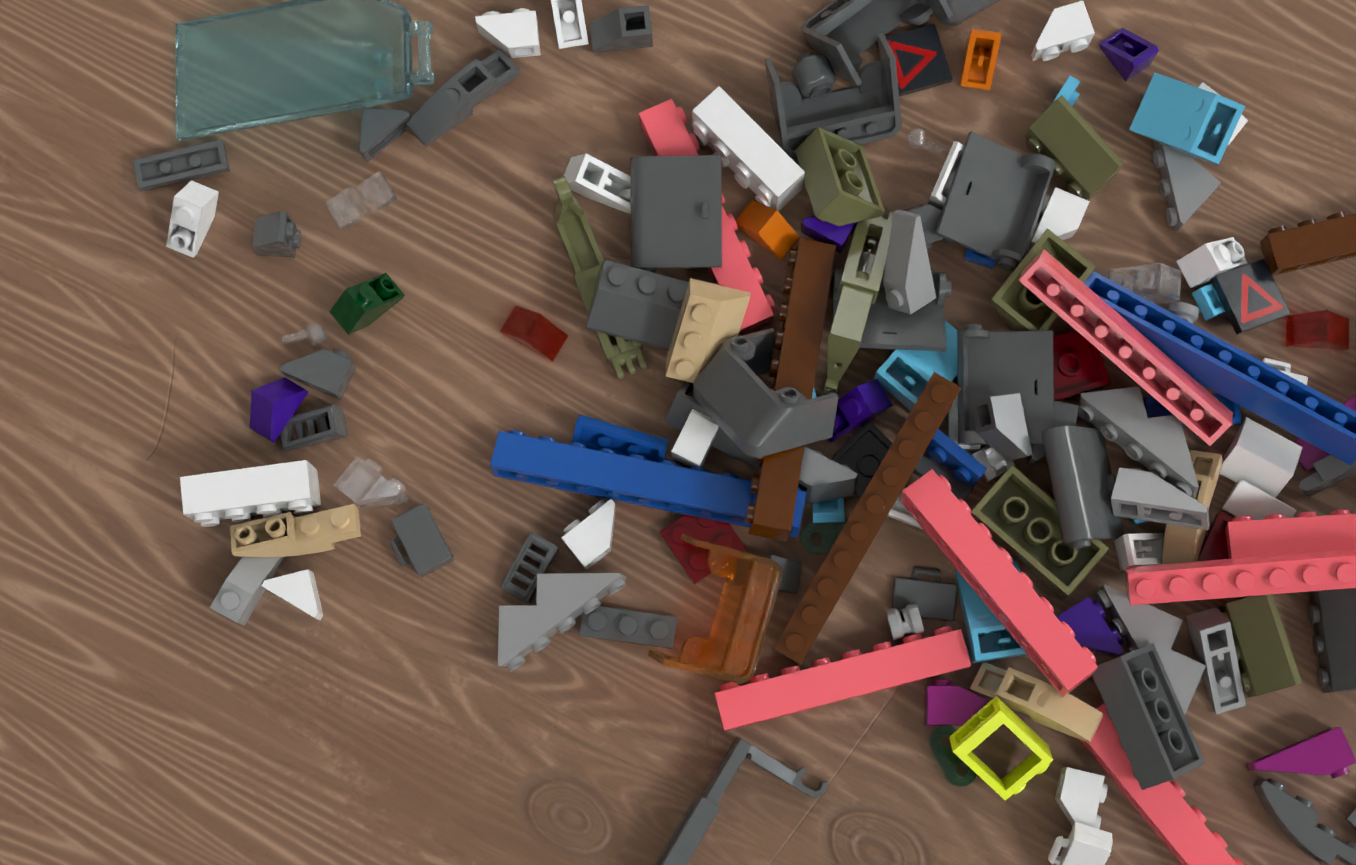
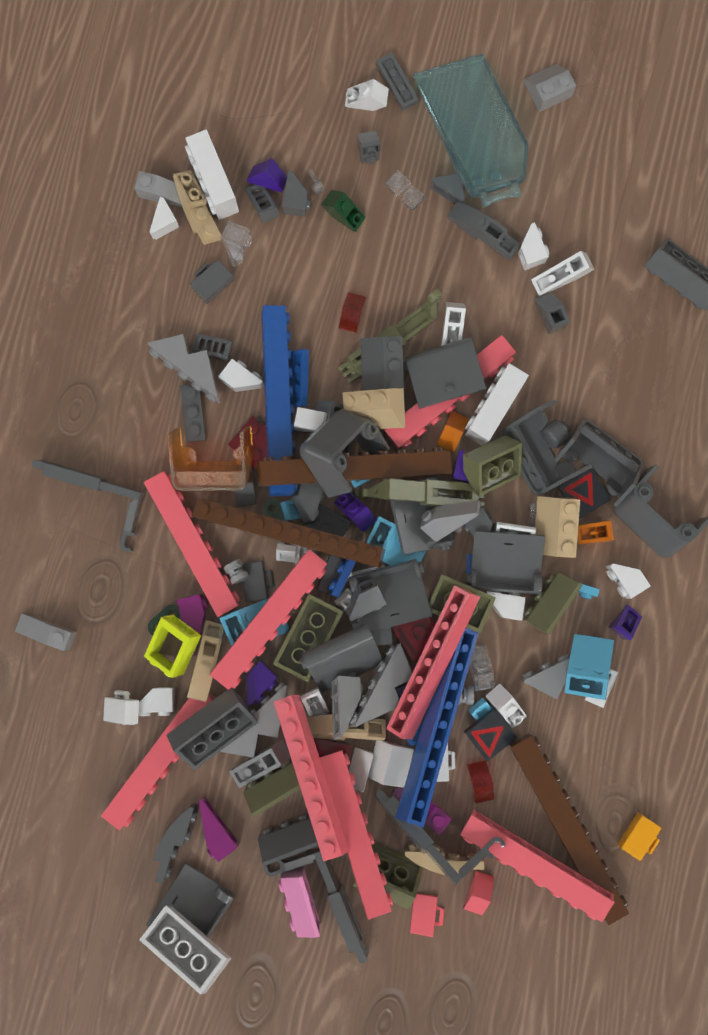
camera: 70 degrees right, 5 degrees up
(893, 534) = (285, 552): none -> white tile
(952, 106) = (558, 521): none -> tan slope

